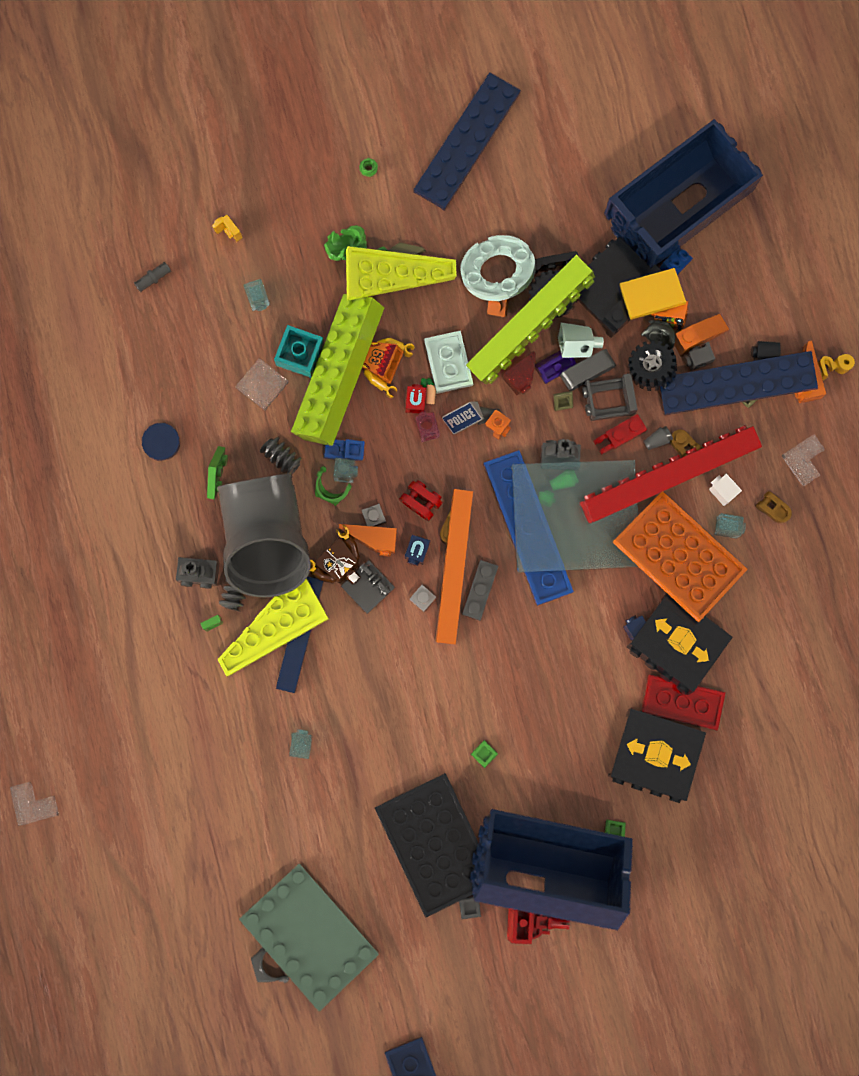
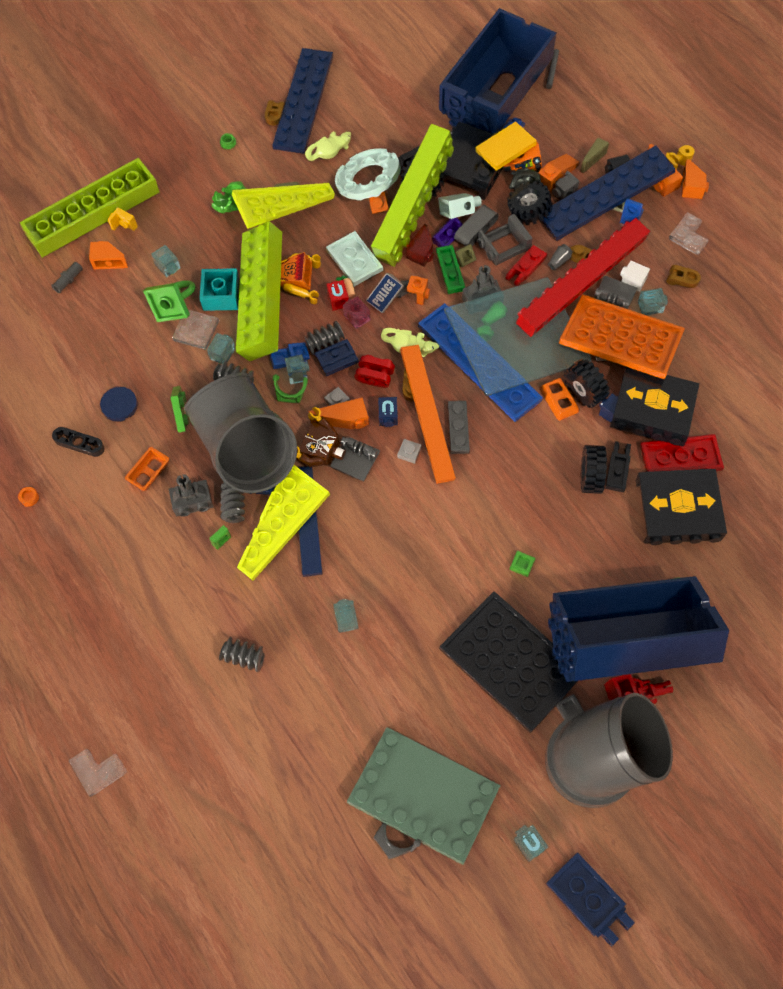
camera: 15 degrees left, 15 degrees down
(46, 510) = (28, 496): none -> orange tile
(96, 464) = (72, 436): none -> black beam
(163, 519) = (141, 467): none -> orange piece
(194, 747) = (242, 654): none -> dark grey piece
(197, 266) = (106, 256): none -> orange slope
(199, 202) = (89, 207): none -> lime brick
(242, 350) = (168, 302): none -> bright green tile
(279, 418) = (221, 348): none -> clear light blue brick
(384, 445) = (323, 337): none -> dark grey piece
(384, 1014) = (530, 842): none -> clear light blue brick
(389, 470) = (336, 357): none -> dark blue plate
(426, 151) = (274, 112): none -> pearl gold plate
(459, 964) = (590, 757): none -> dark grey cylinder
(463, 480) = (405, 338): none -> yellowish green animal
(471, 216) = (328, 147): none -> yellowish green animal
(541, 411) = (450, 269): none -> green plate
(583, 596) = (552, 400): none -> orange piece
(587, 690) = (593, 469): none -> black wheel
(615, 693) = (618, 469): none -> black hinge
(620, 597) = (586, 383): none -> black wheel
(697, 500) = (615, 292): none -> dark grey hinge
(750, 326) = (595, 153): none -> olive slope
(751, 198) = (552, 69): none -> dark grey bar
(754, 415) = (631, 210): none -> blue bracket
(837, 400) = (693, 181): none -> orange slope

